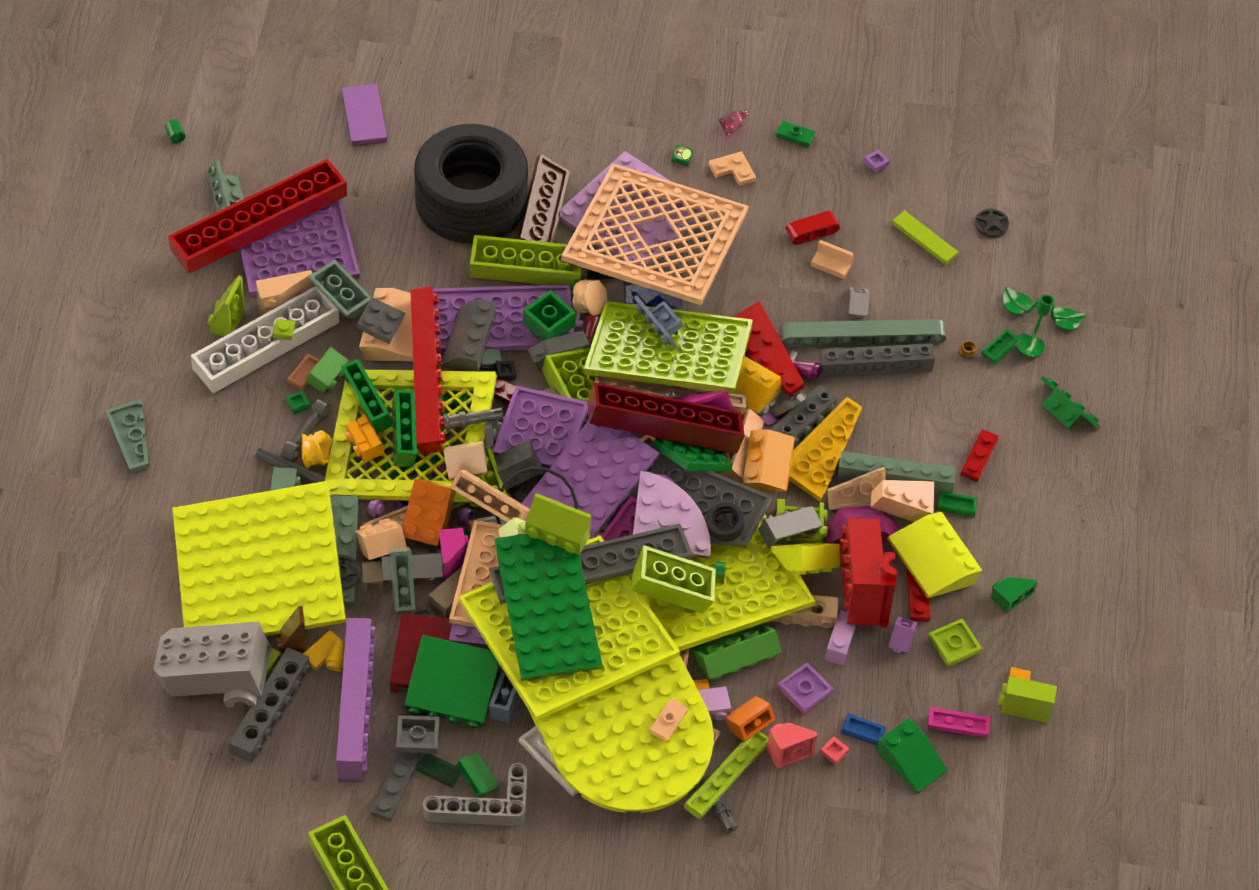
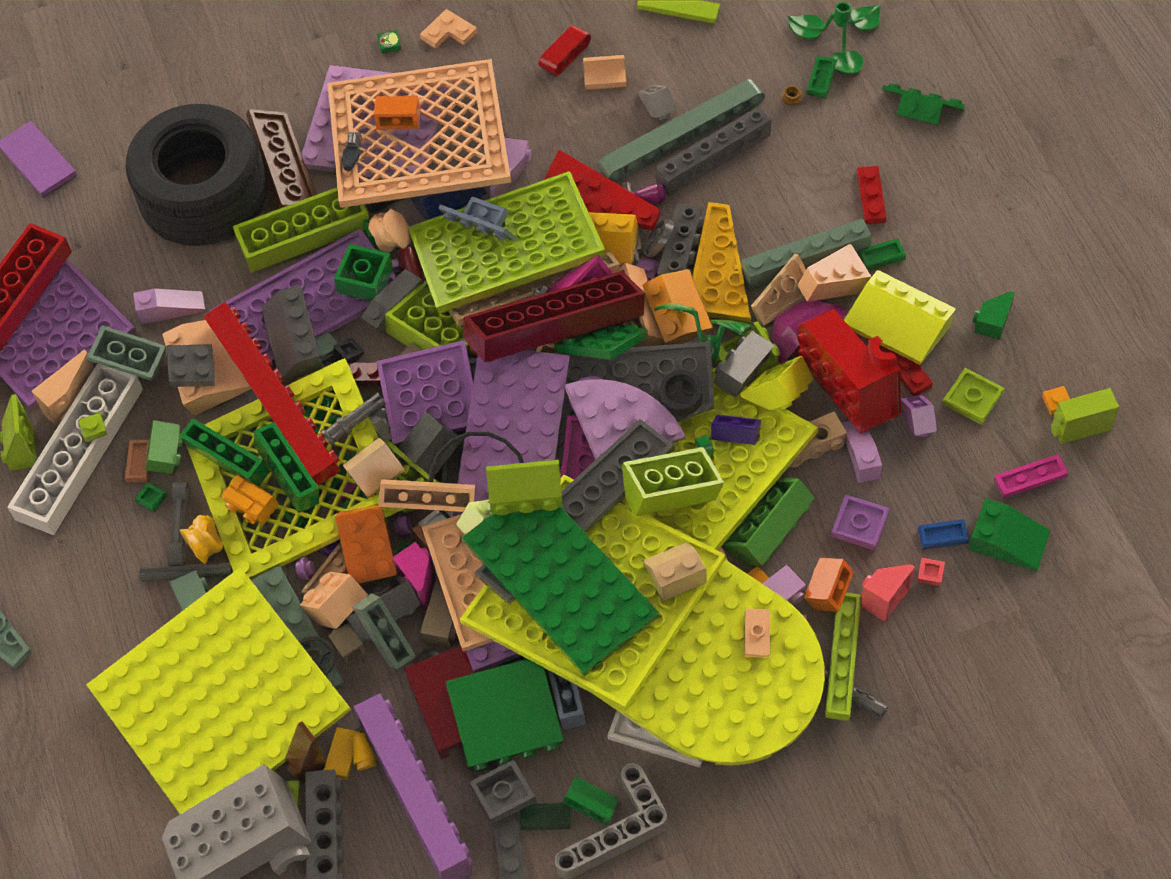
camera: 20 degrees left, 5 degrees up
(394, 269) = (166, 304): none -> lavender slope
(596, 222) = (352, 150): none -> piece
(634, 643) = (676, 570): none -> tan slope
(647, 210) = (397, 112): none -> orange brick
(720, 292) = (518, 156): none -> lavender slope
(752, 571) = (735, 429): none -> dark purple slope
(778, 499) = (715, 341): none -> green plant

